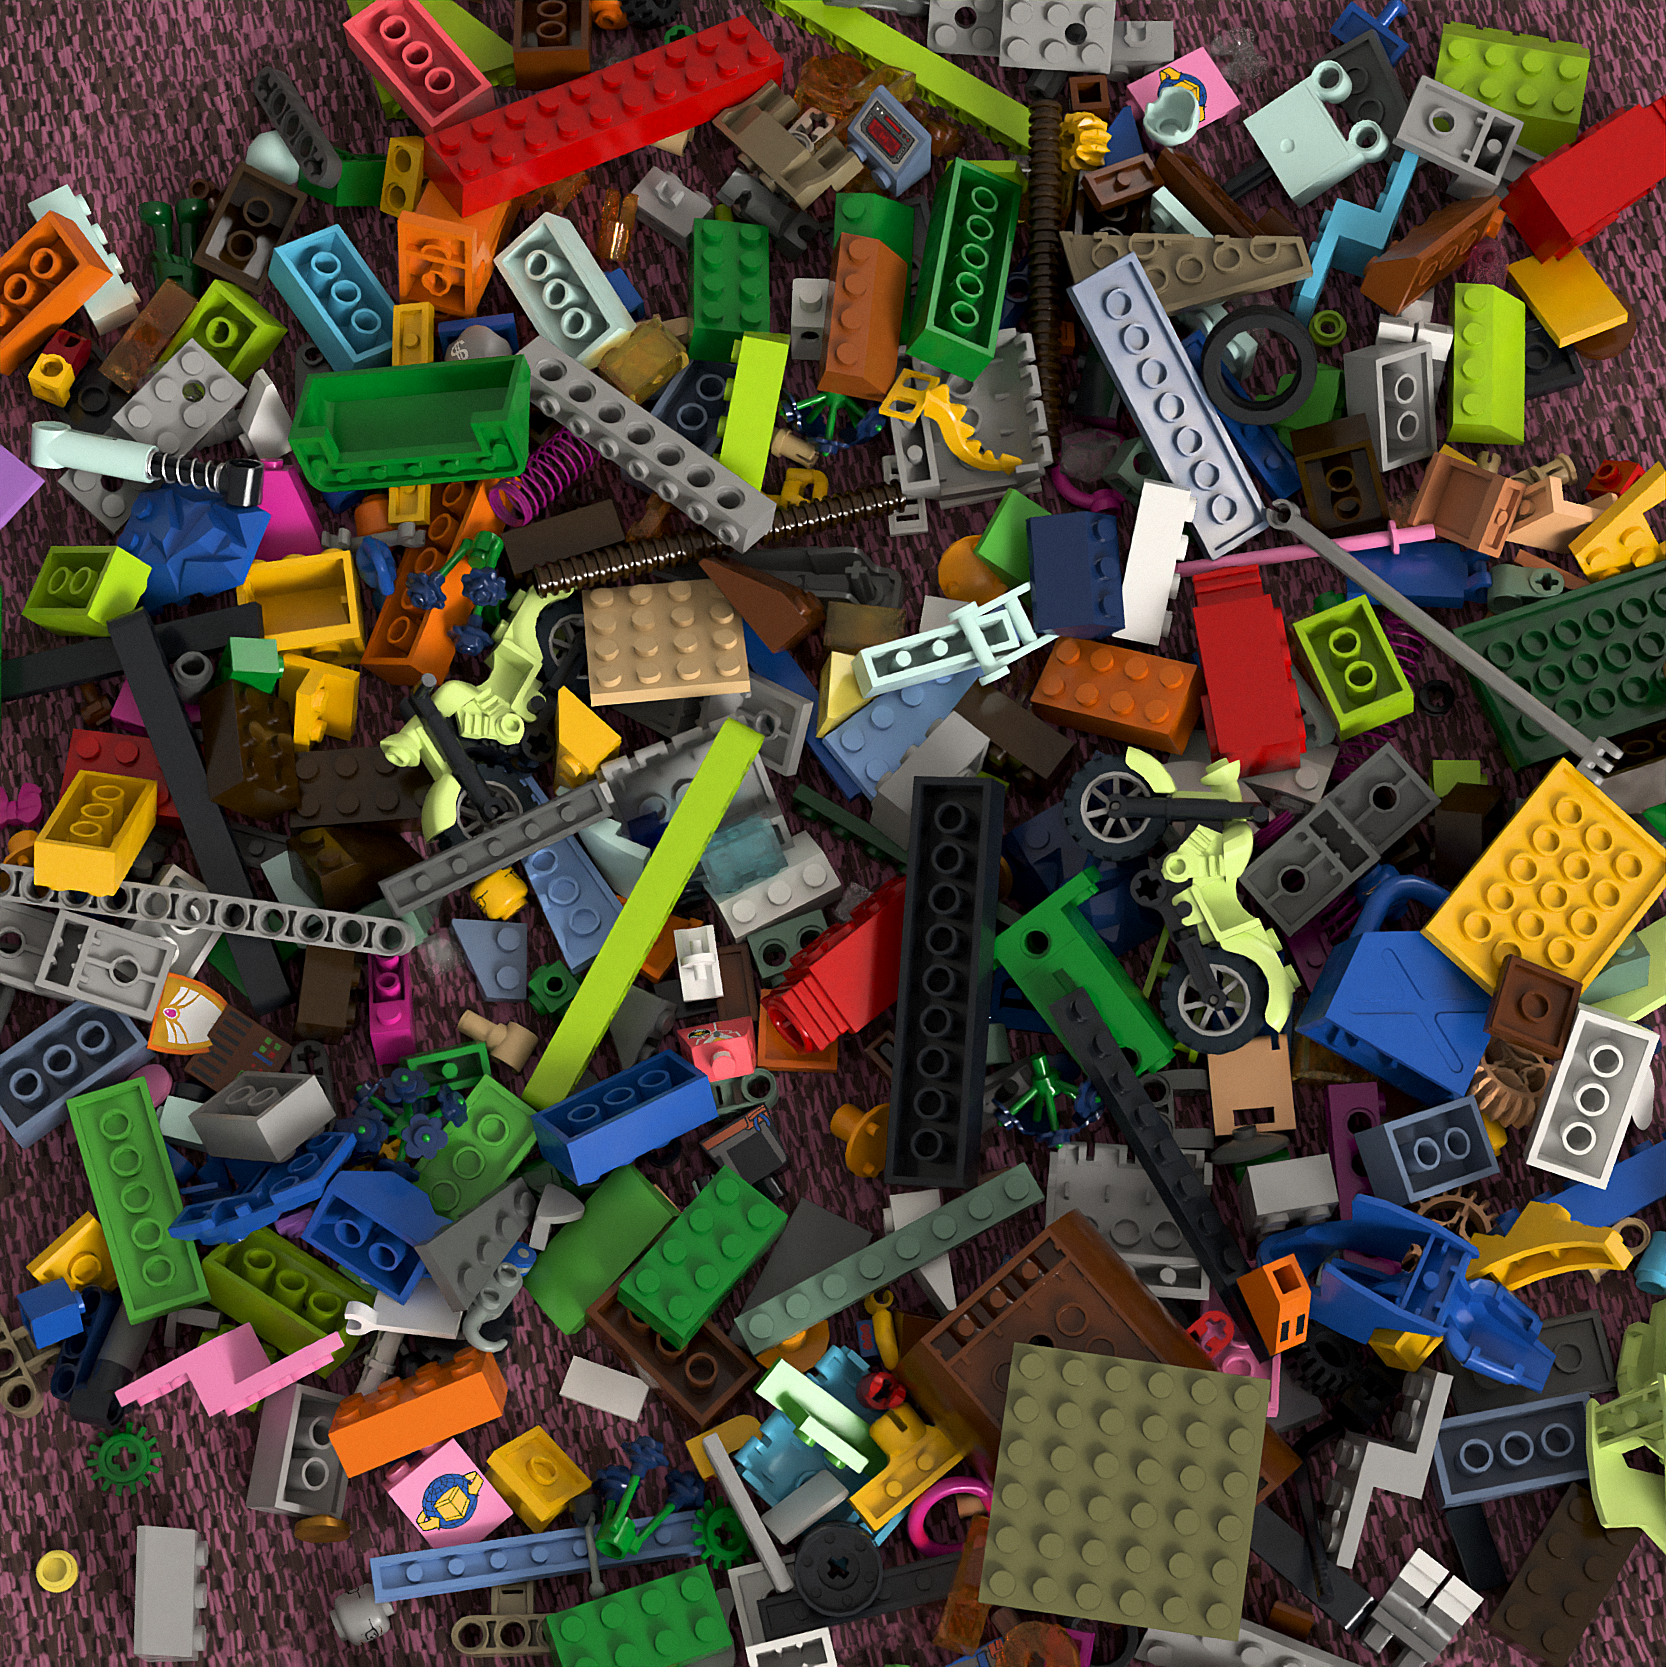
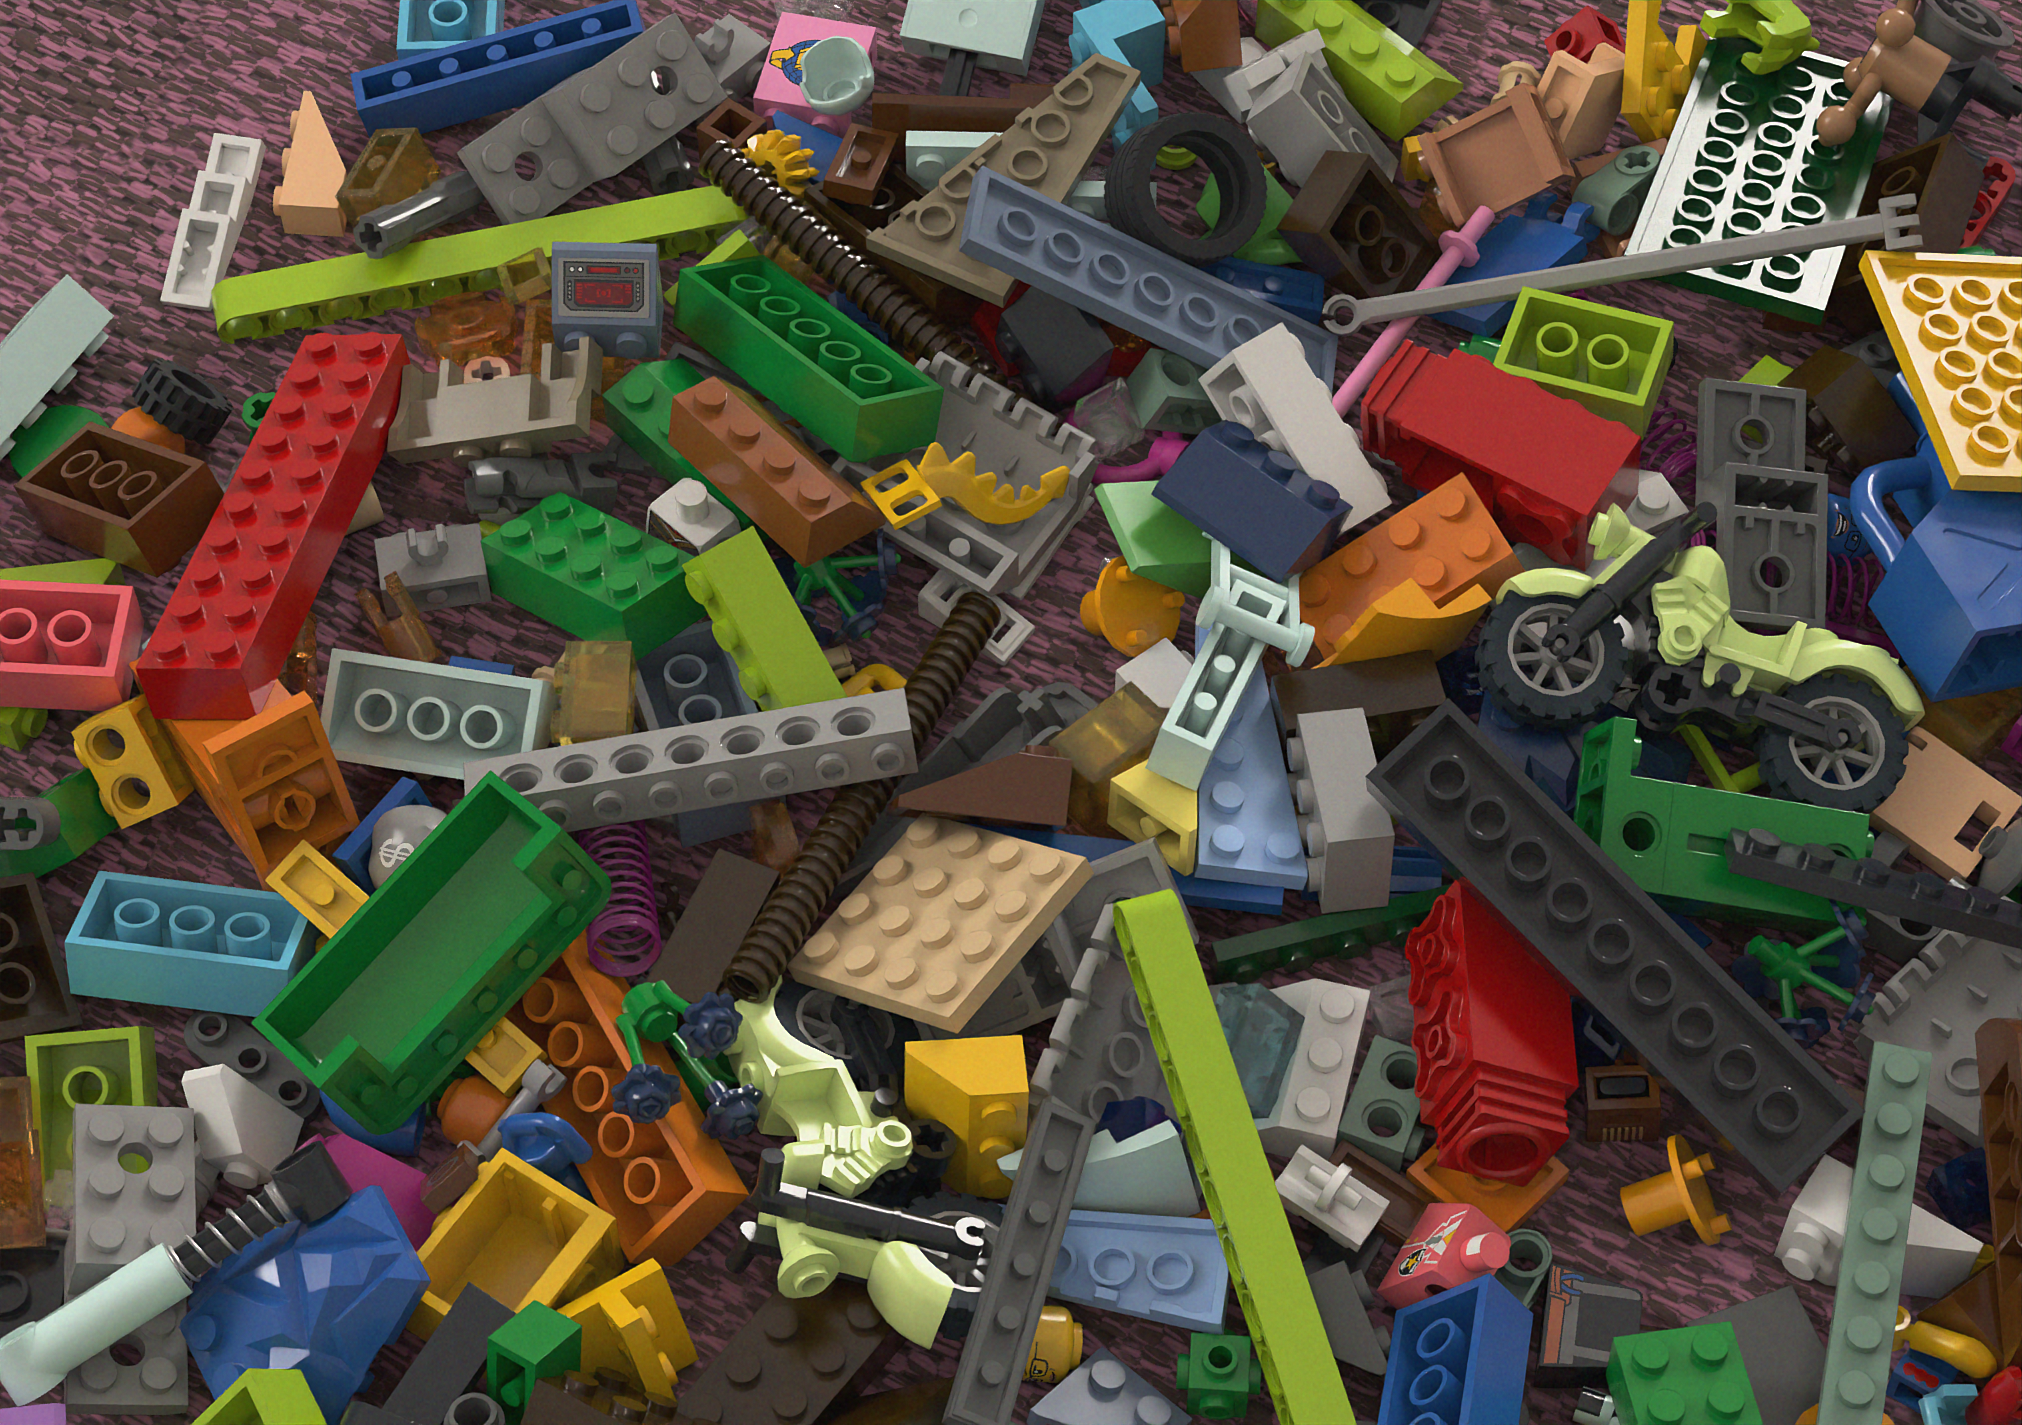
camera: 50 degrees left, 15 degrees down
(314, 542) = (449, 1179): none -> reddish brown tile
(1067, 715) = (1409, 623): none -> light orange slope

